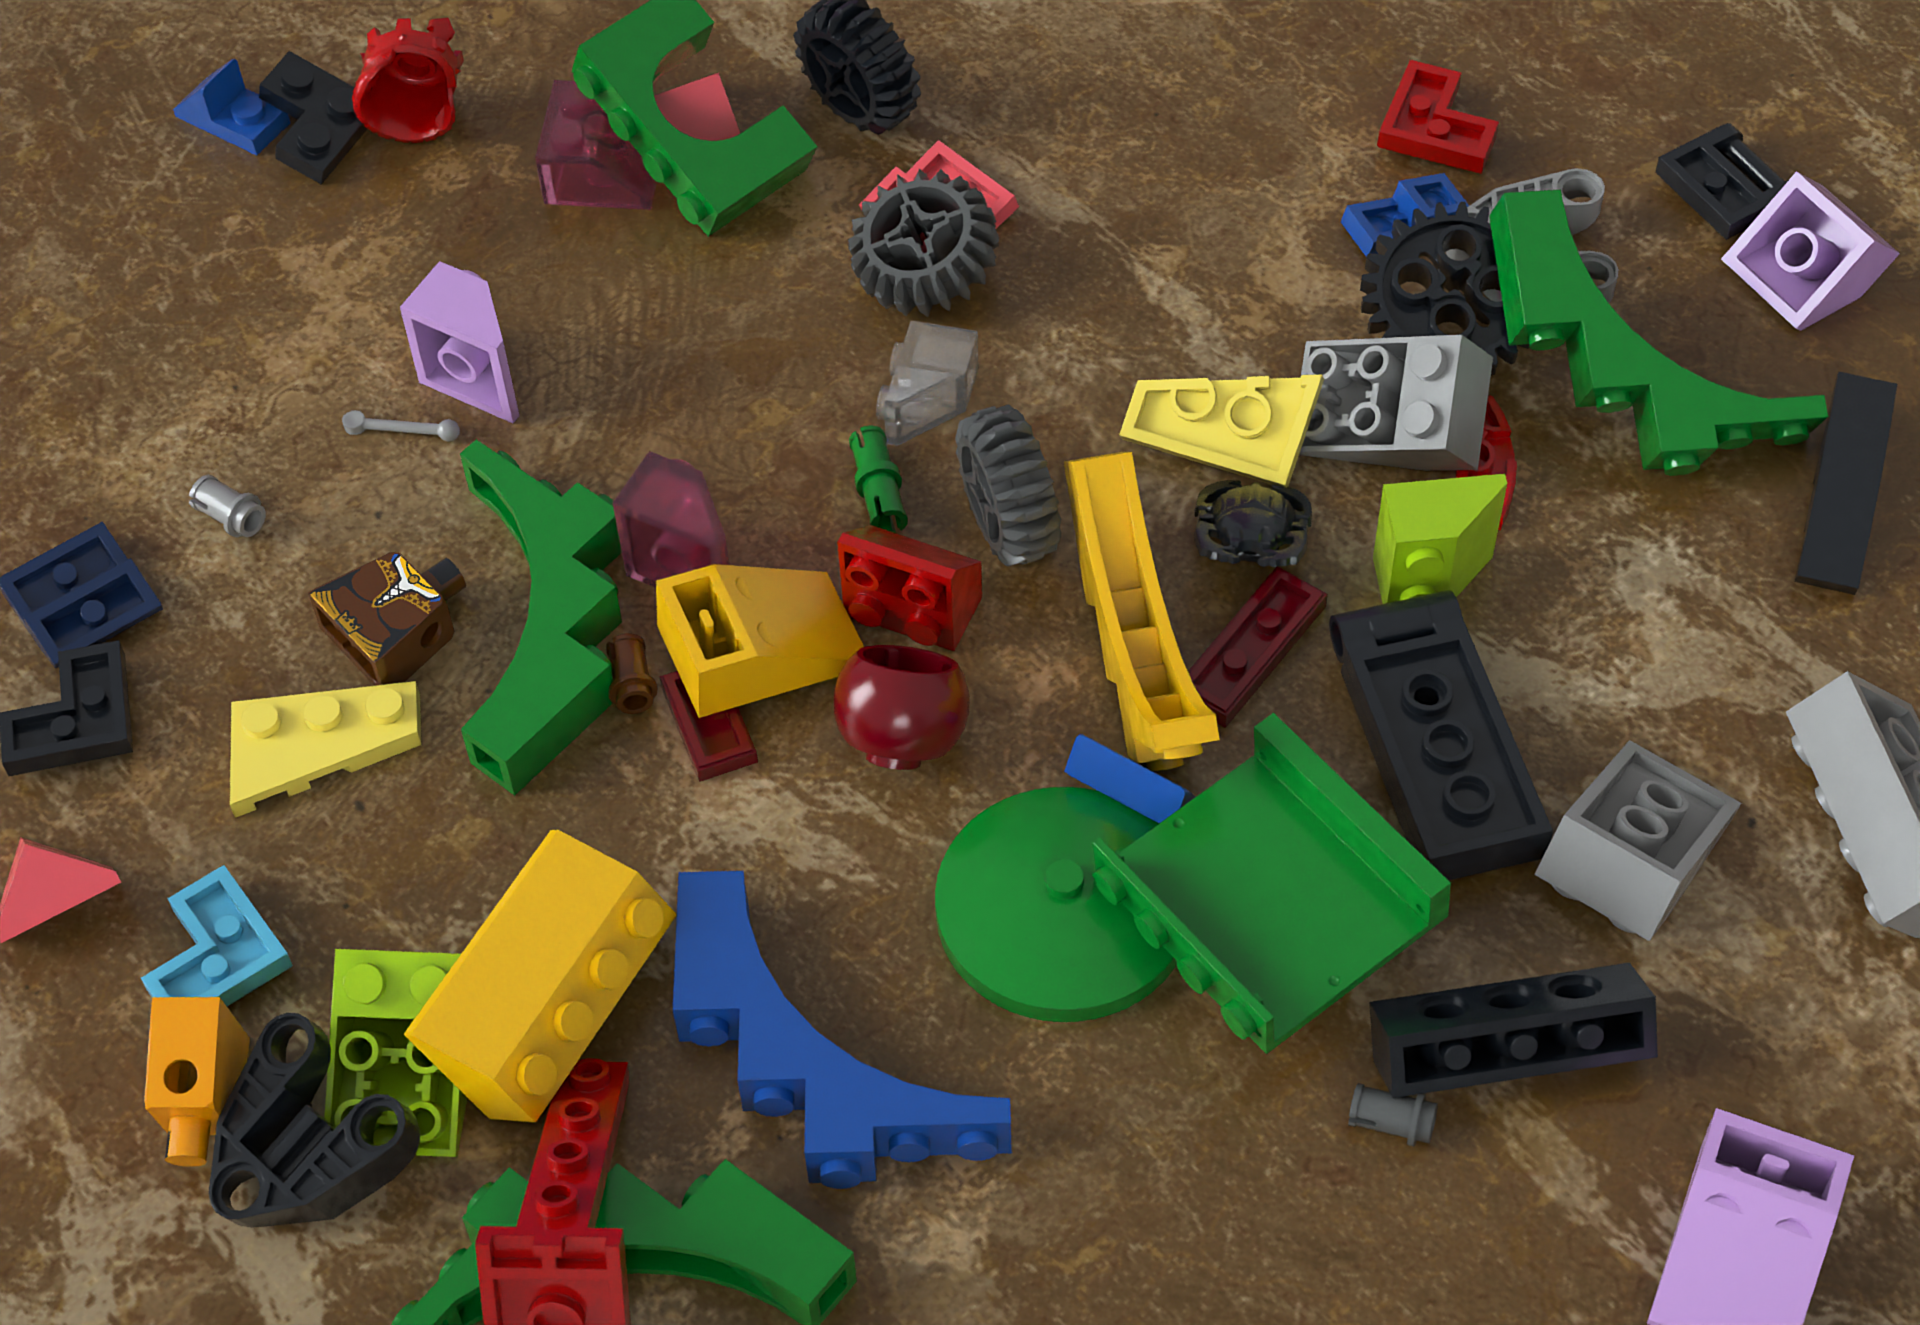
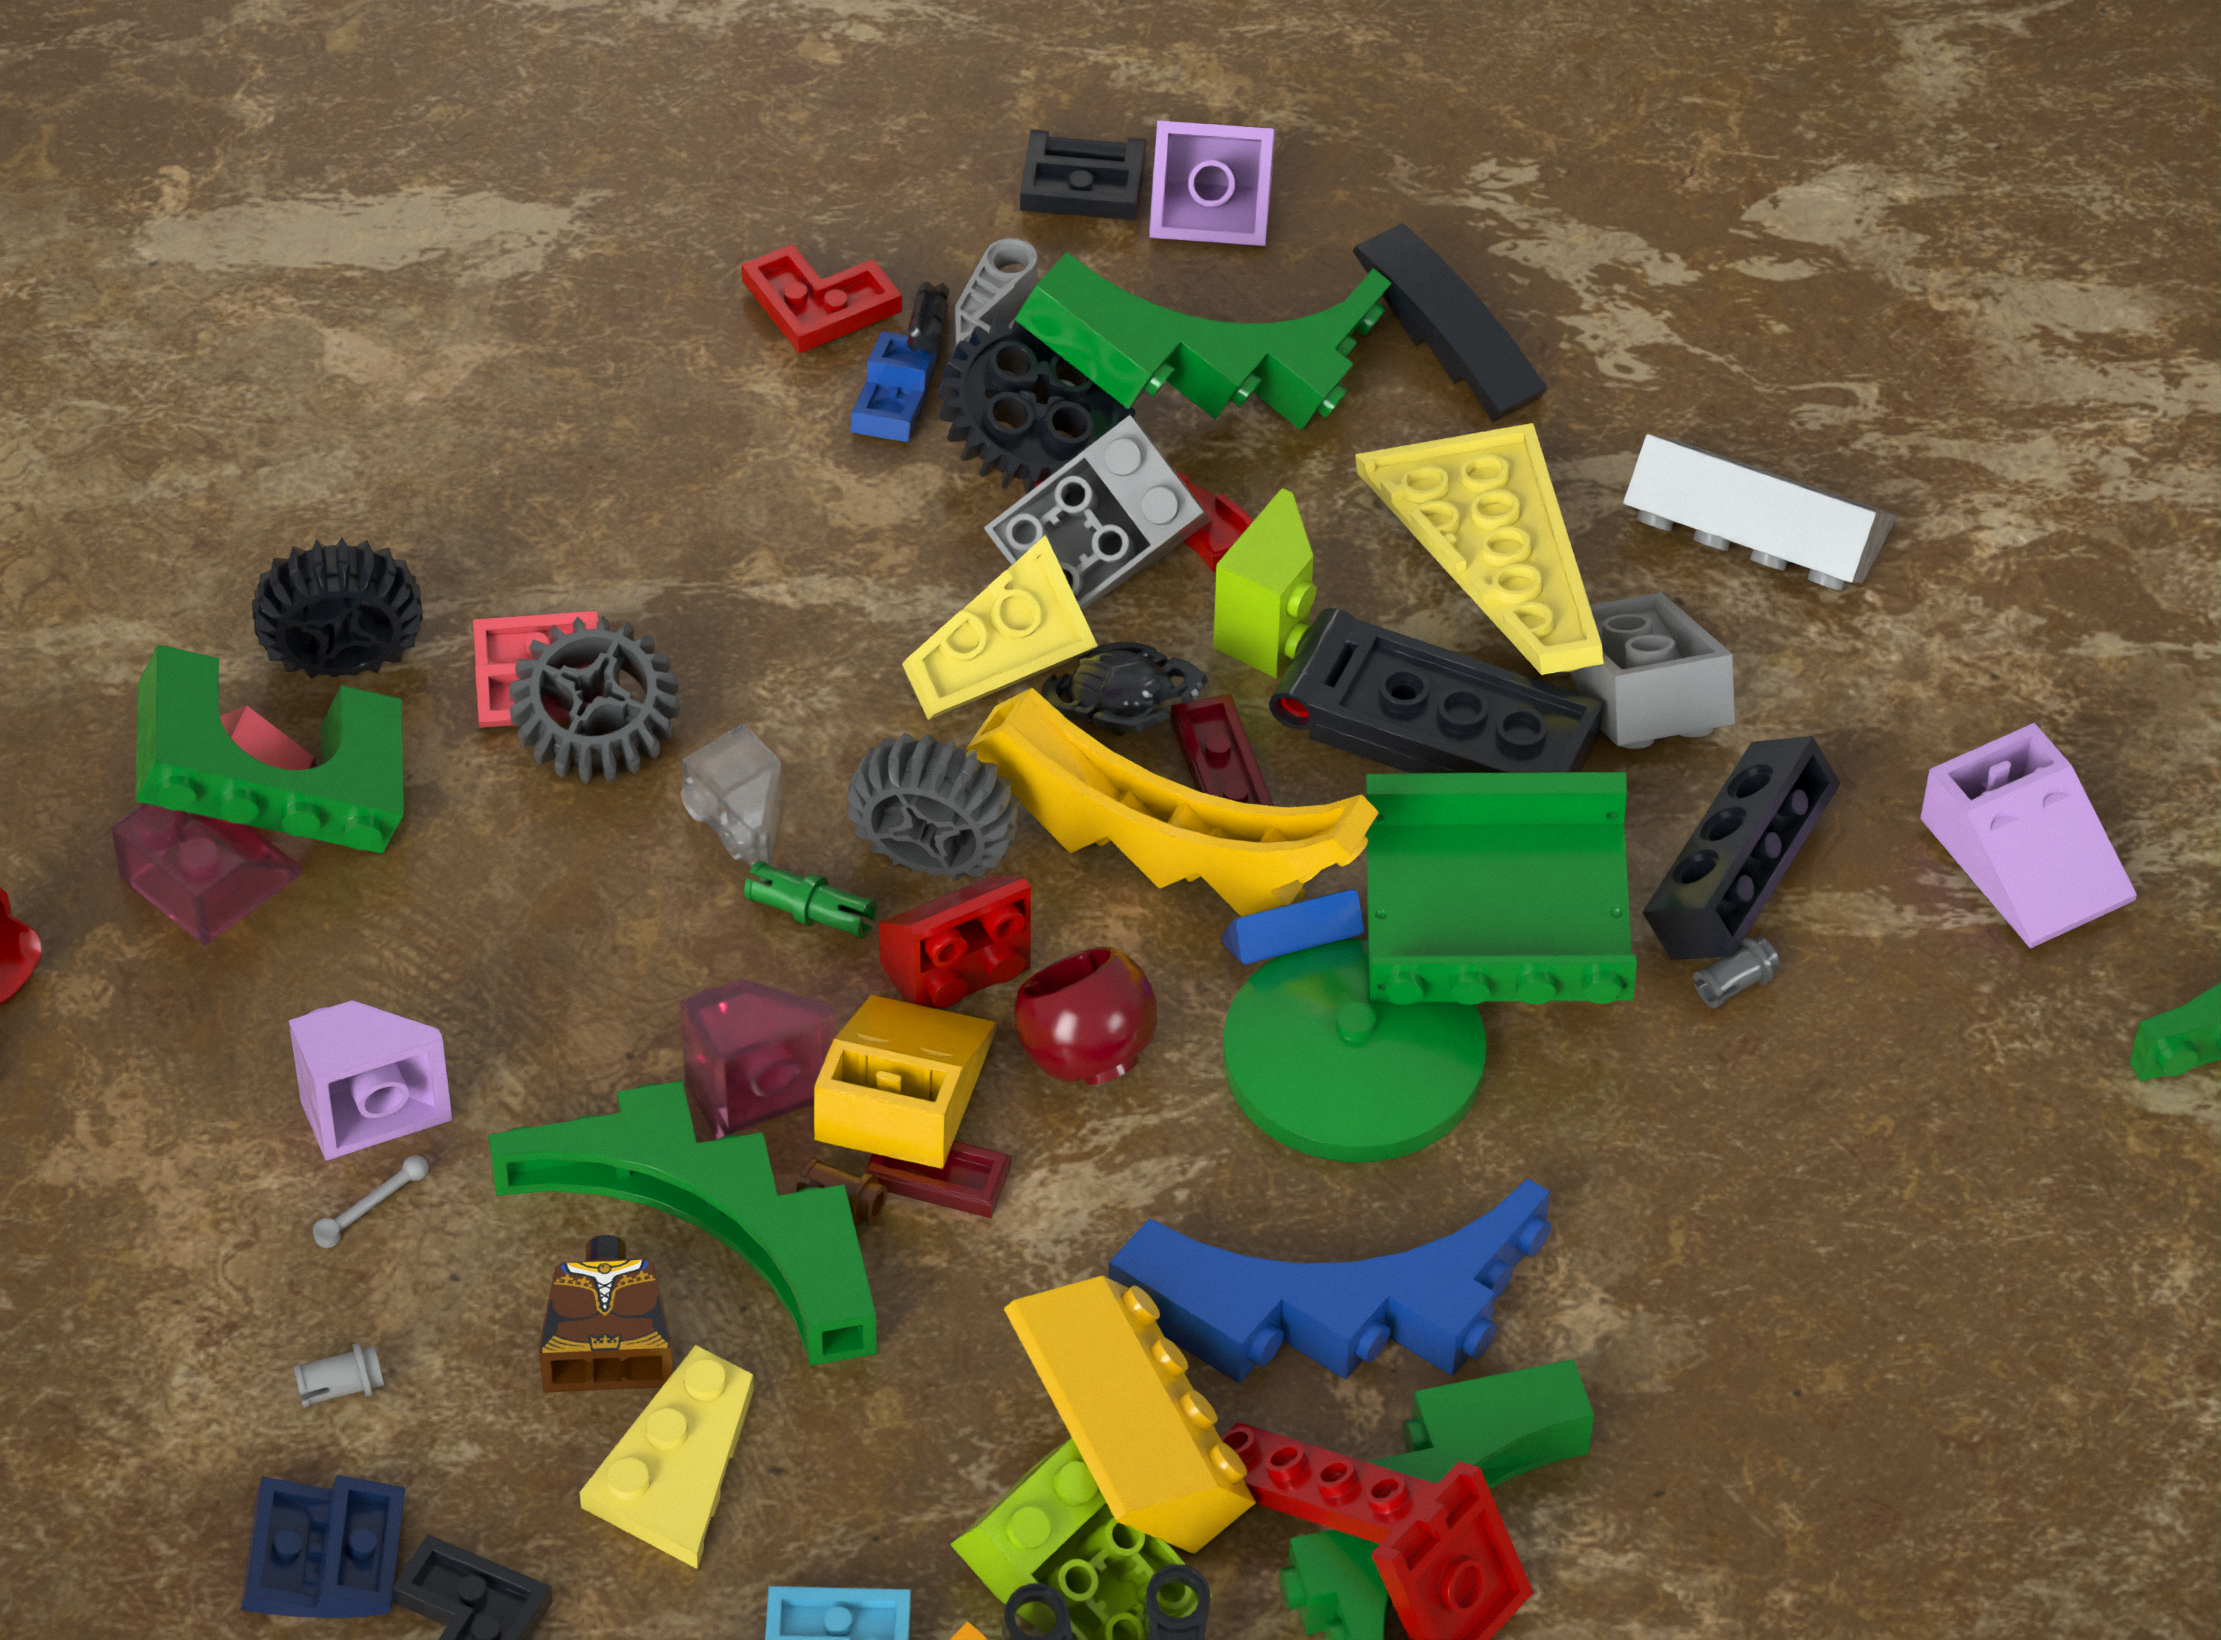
camera: 55 degrees left, 5 degrees down
(1476, 184) = (928, 317): none -> black axle
(1655, 647) = (1498, 531): none -> light yellow wing

